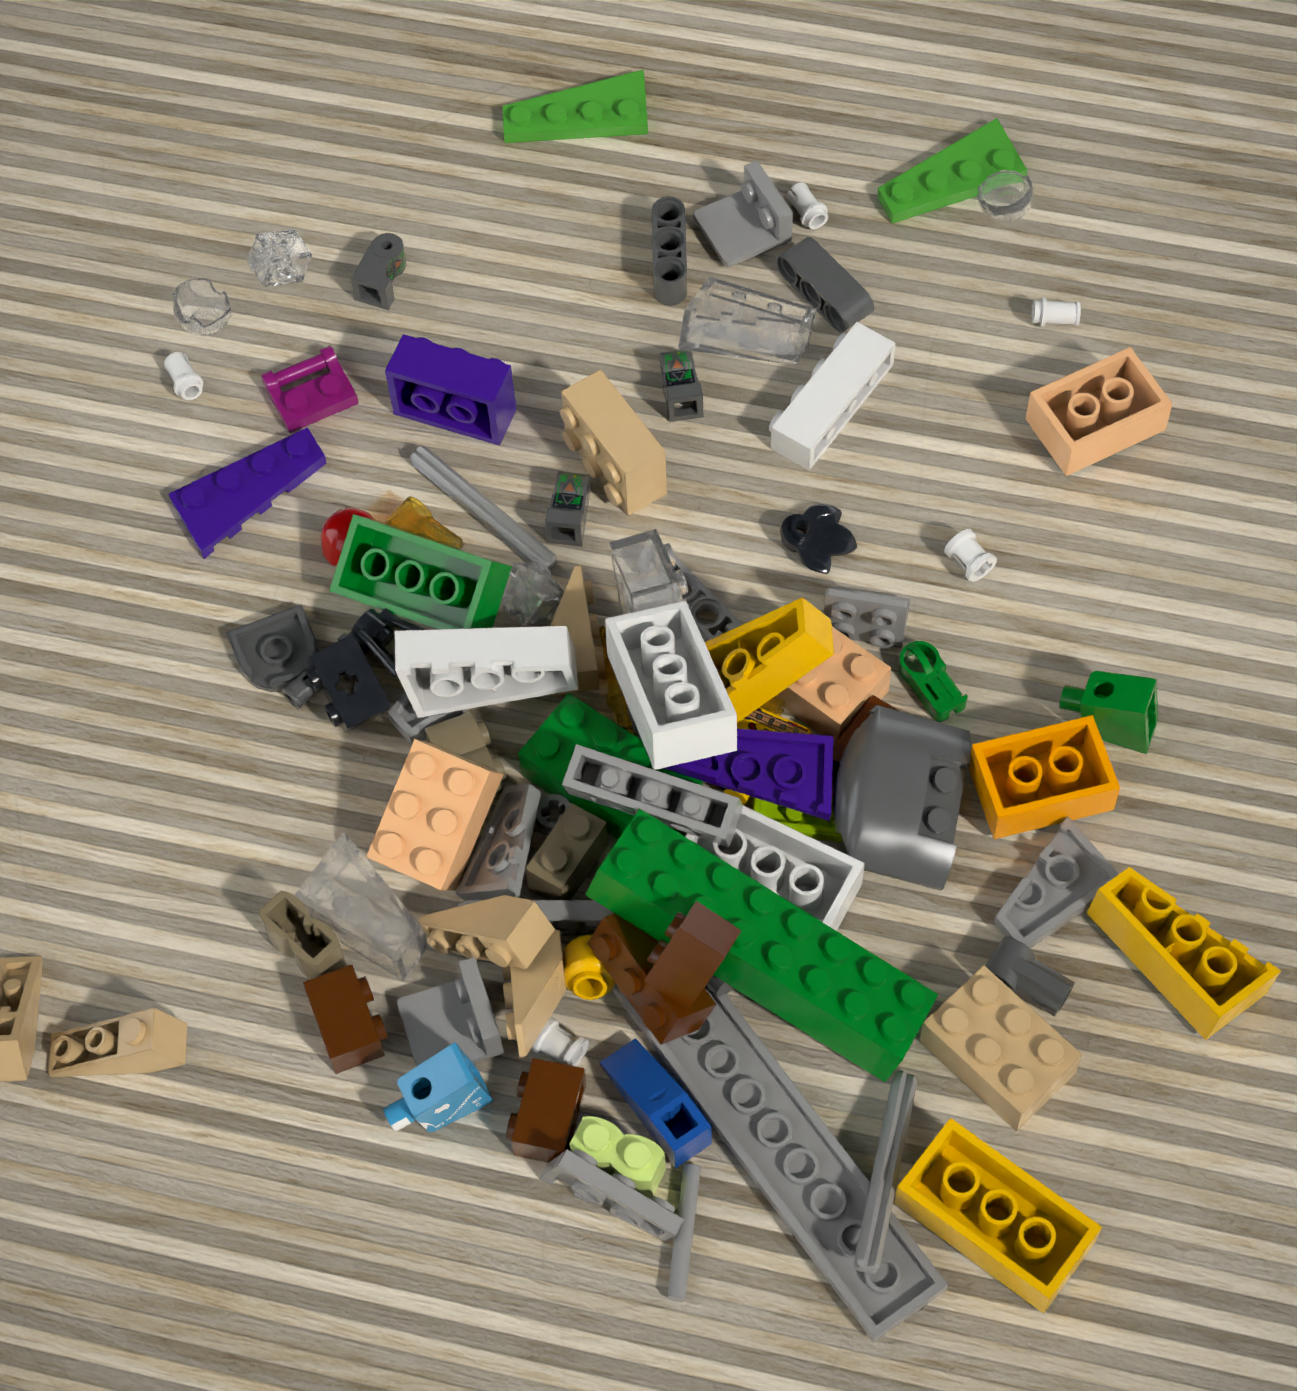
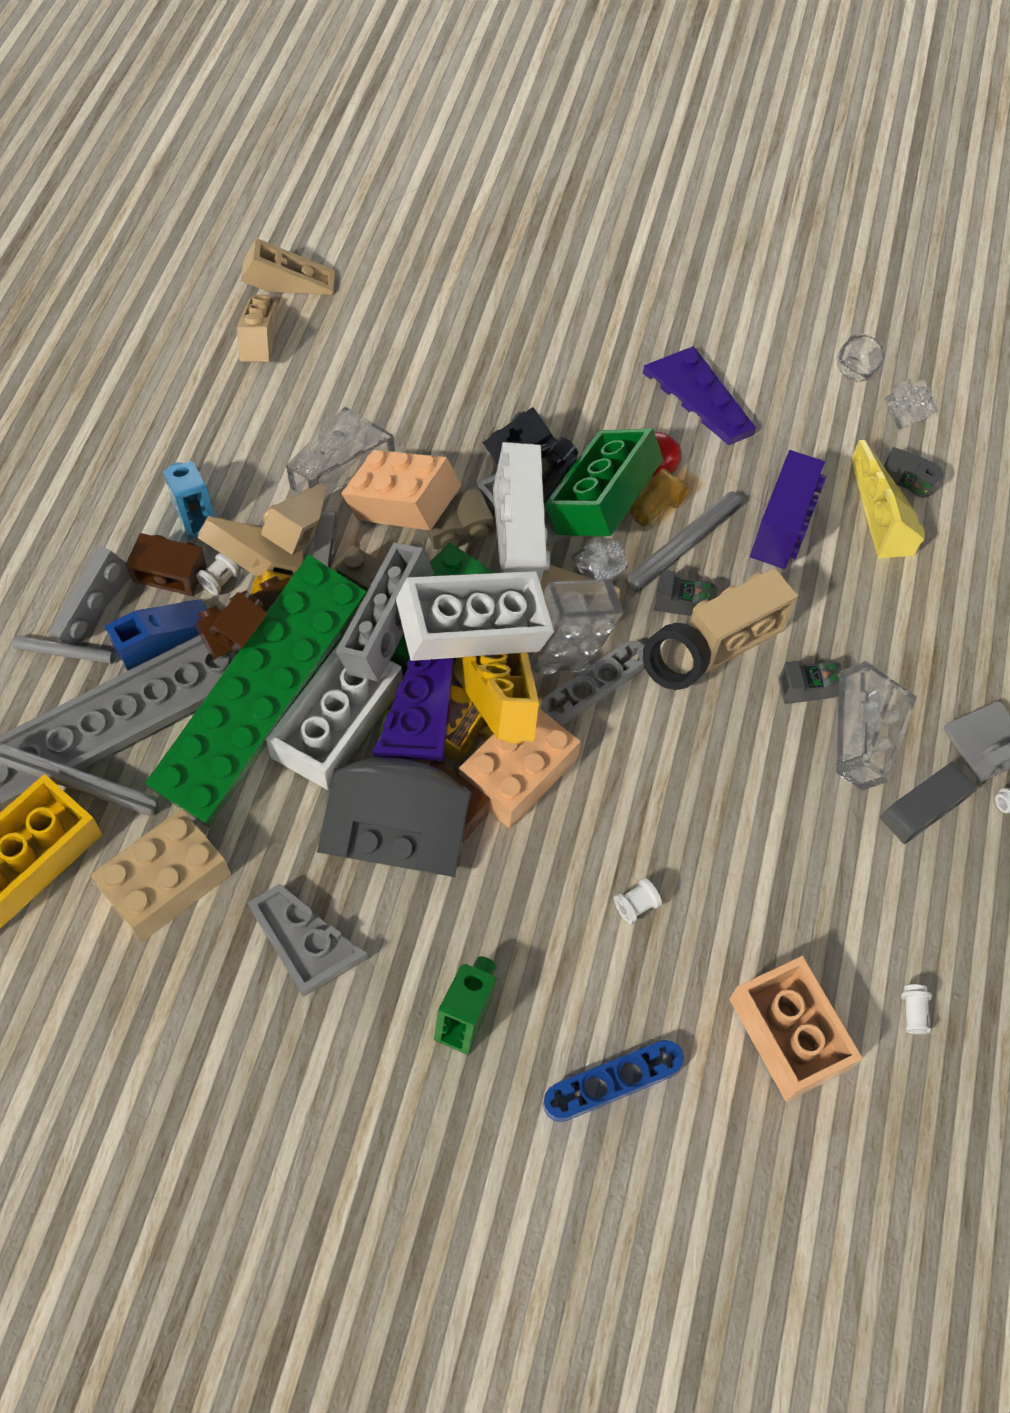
camera: 85 degrees right, 0 degrees up
(186, 382) = (792, 355): white pin -> none
(274, 648) = (565, 411): dark grey tile -> none
(300, 936) = (313, 415): dark tan brick -> none
(312, 399) = (785, 434): magenta plate -> none
(344, 1018) = (258, 446): reddish brown brick -> none
(441, 295) = (888, 512): none -> light yellow wedge
(452, 1014) = (244, 502): light grey bracket -> none
(504, 846) = (371, 536): light grey wing -> none
(620, 1153) = (126, 593): yellowish green brick -> none
(669, 250) = (967, 676): dark grey beam -> none
(689, 506) = (659, 670): none -> black tyre
(821, 537) = (659, 784): black plate -> none
(831, 395) = (805, 799): white brick -> none
(867, 616) = (576, 809): light grey bracket -> none
(934, 685) = (508, 859): green piece -> none
(1029, 978) = (226, 901): dark grey piece -> none
(1043, 777) = (403, 933): light orange brick -> none
(1174, 577) = (616, 1086): none -> blue beam
(1180, 953) = (215, 1035): yellow wedge -> none

